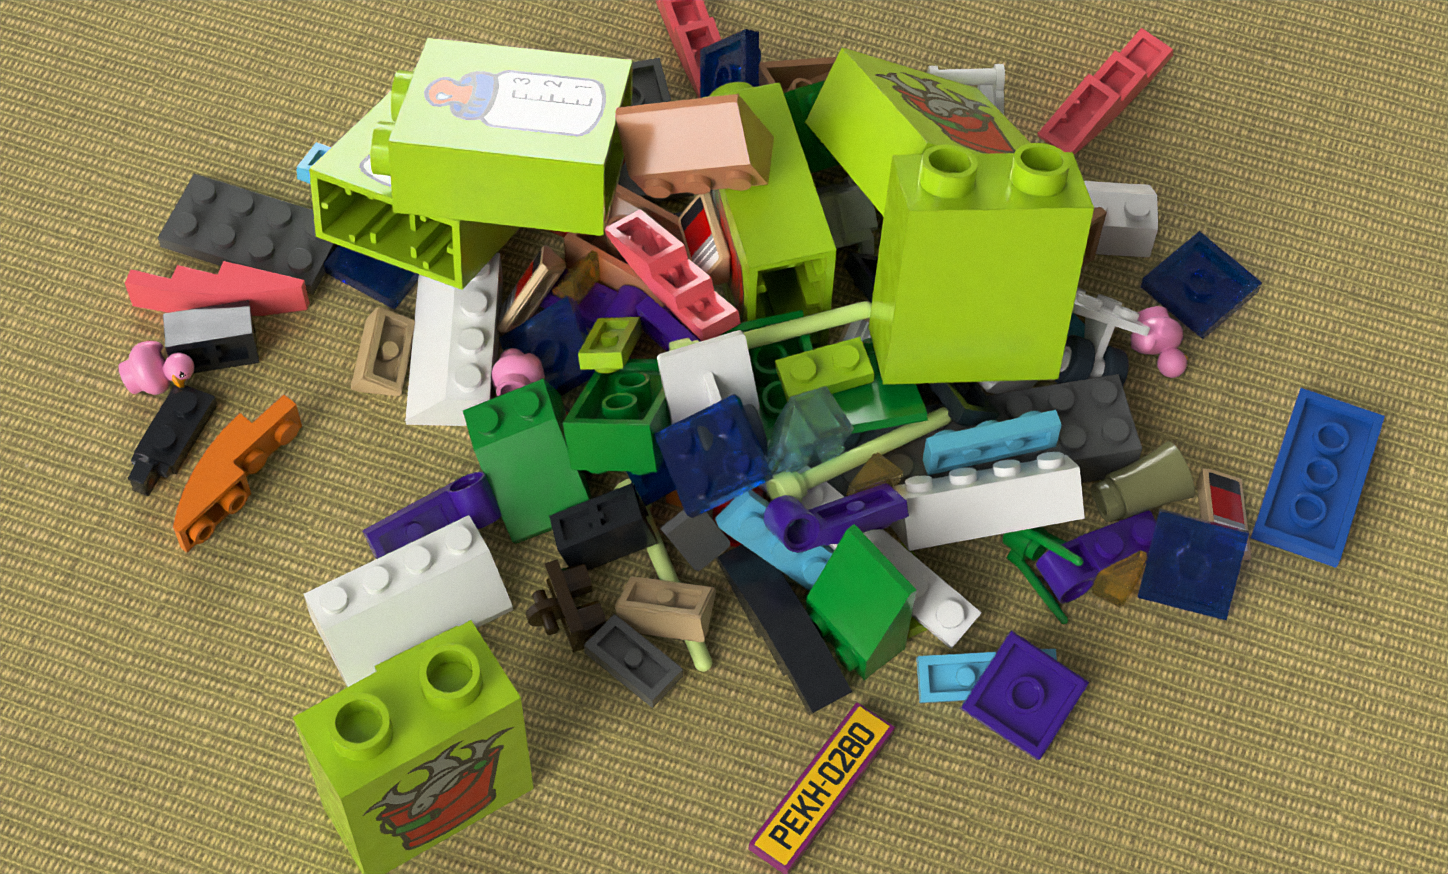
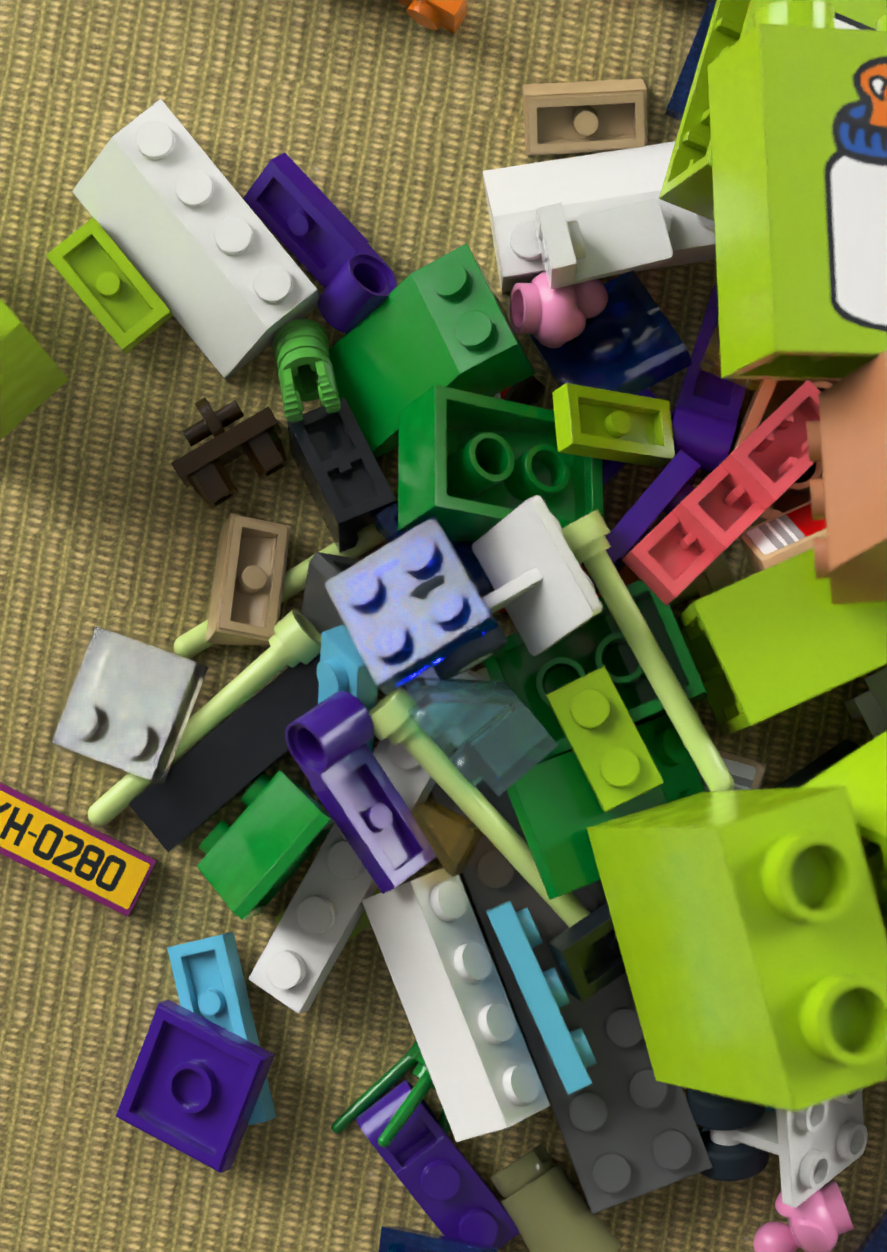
camera: 85 degrees right, 25 degrees up
(484, 327) = (601, 241): none -> white bracket
(524, 536) = (304, 367): none -> bright green hinge
(531, 289) = (686, 286): tan slope -> none
(633, 660) = (165, 553): dark grey plate -> none
(719, 572) = (293, 642): none -> yellowish green piece
(740, 697) = (129, 705): none -> clear smoke plate
(1119, 579) = (397, 1206): clear yellow slope -> none

